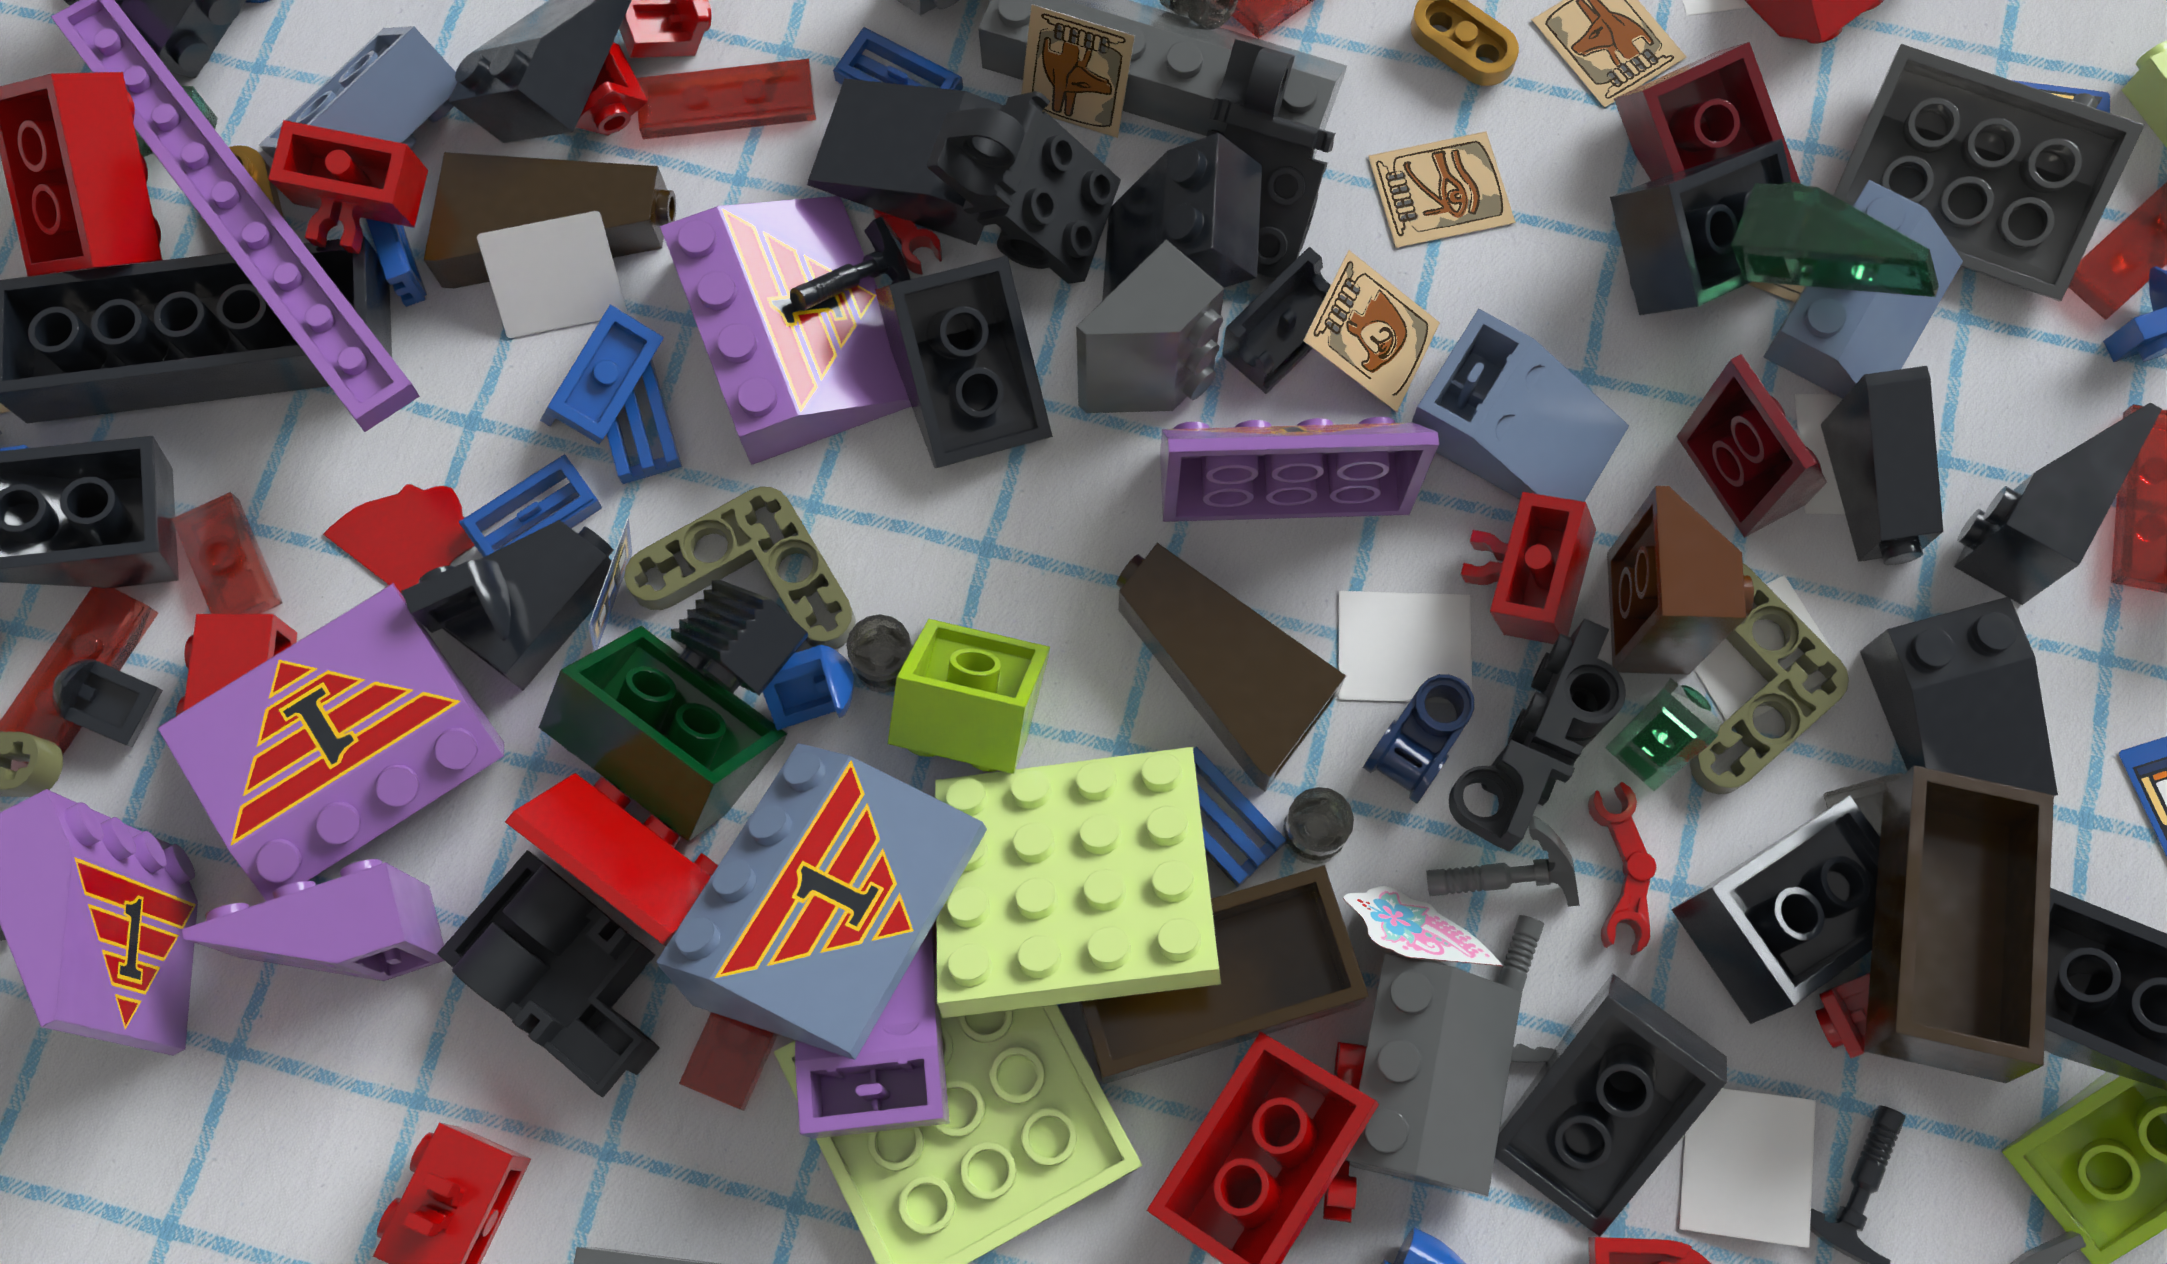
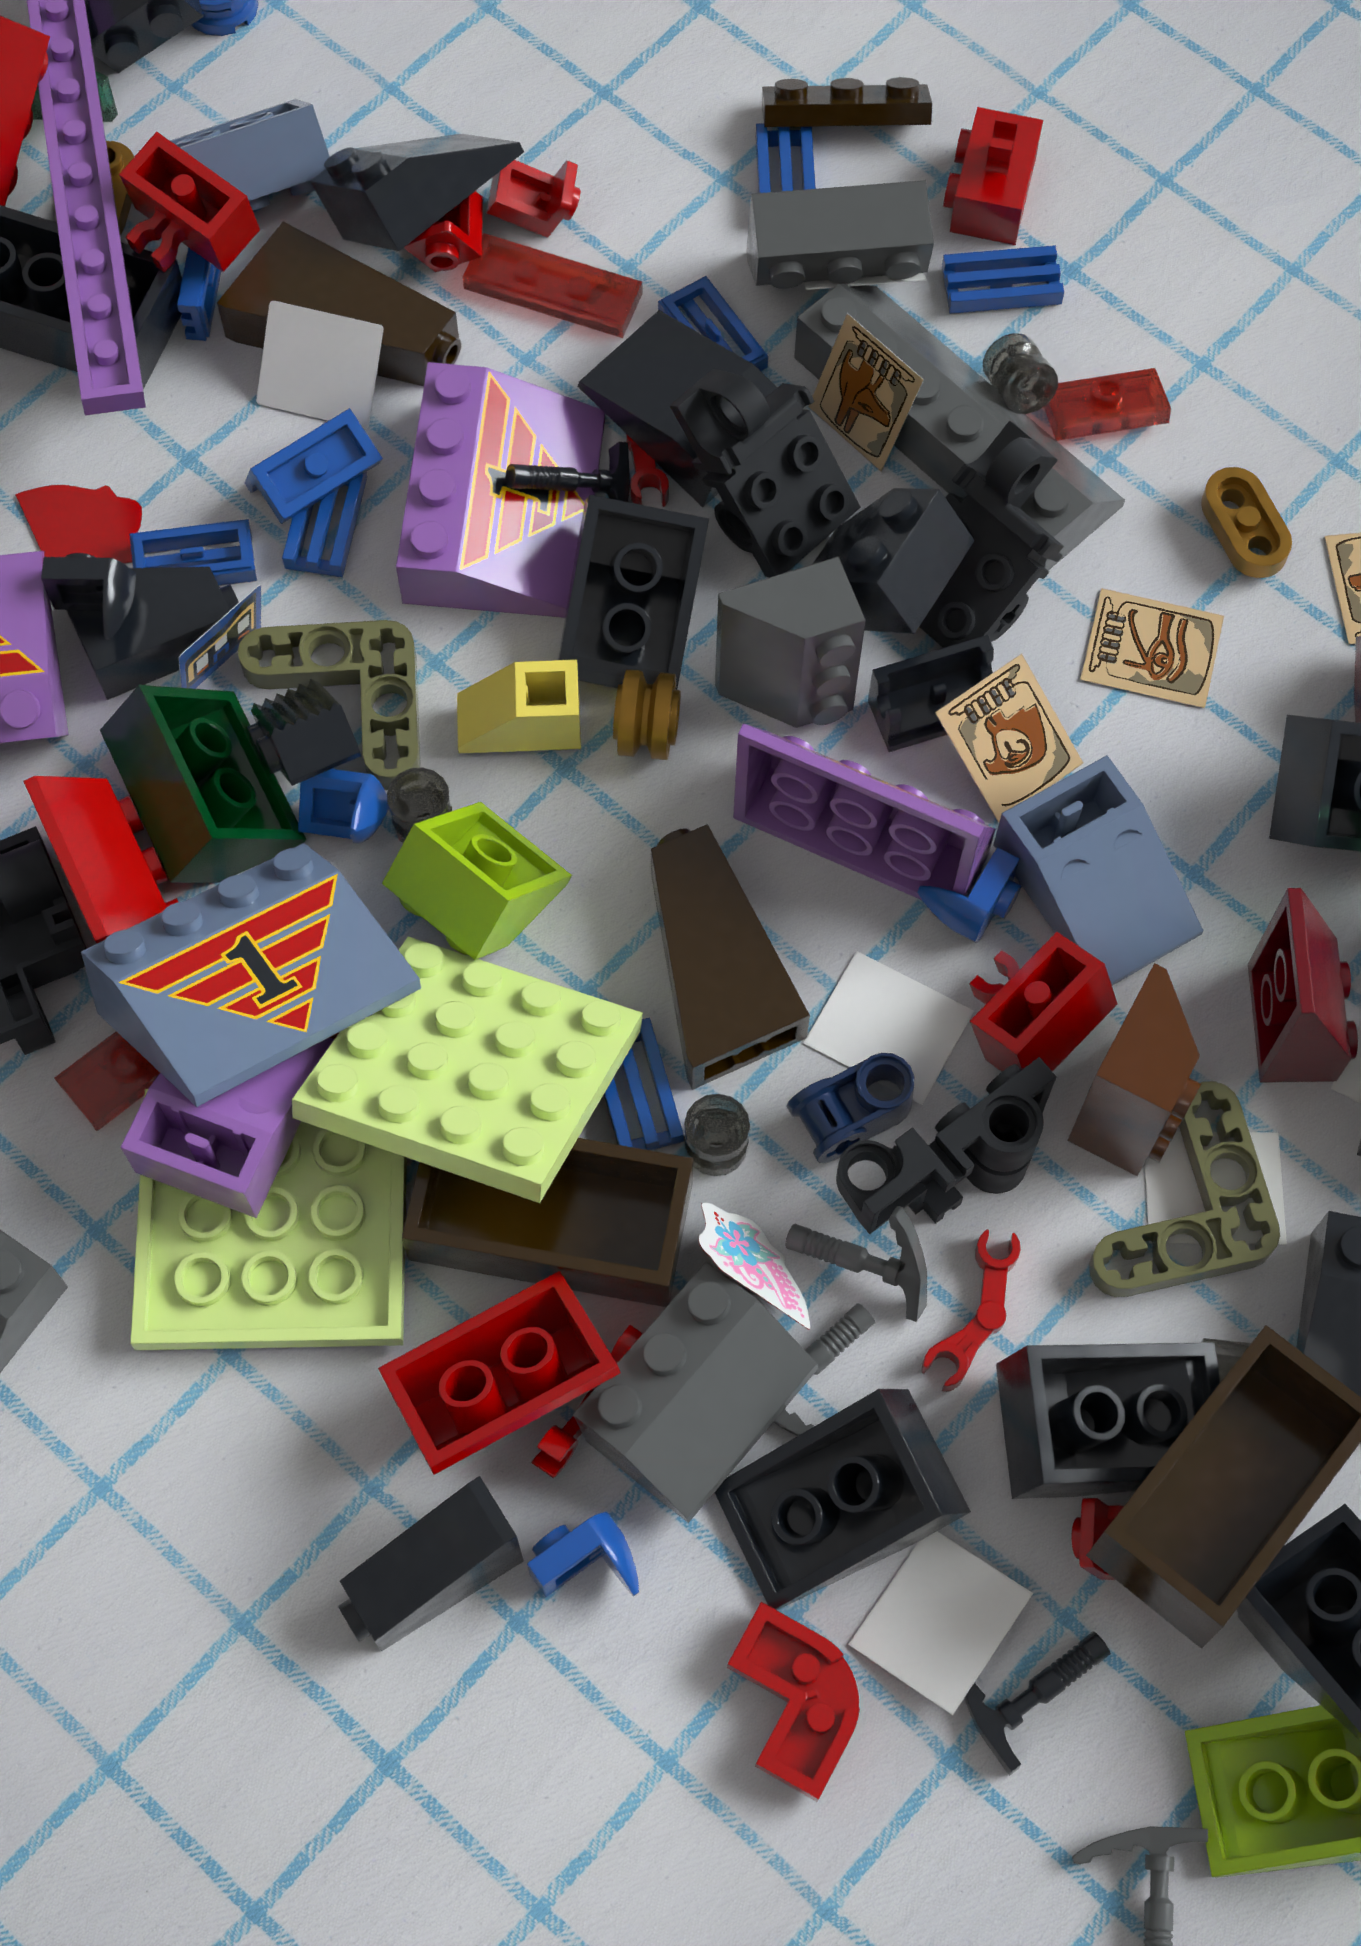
camera: 25 degrees right, 5 degrees down
(925, 515) = (521, 709): none -> light yellow slope
(1042, 465) = (646, 714): none -> pearl gold wheel
(1430, 508) = (991, 896): none -> blue plate
(1666, 734) = (1073, 1199): clear green slope -> none

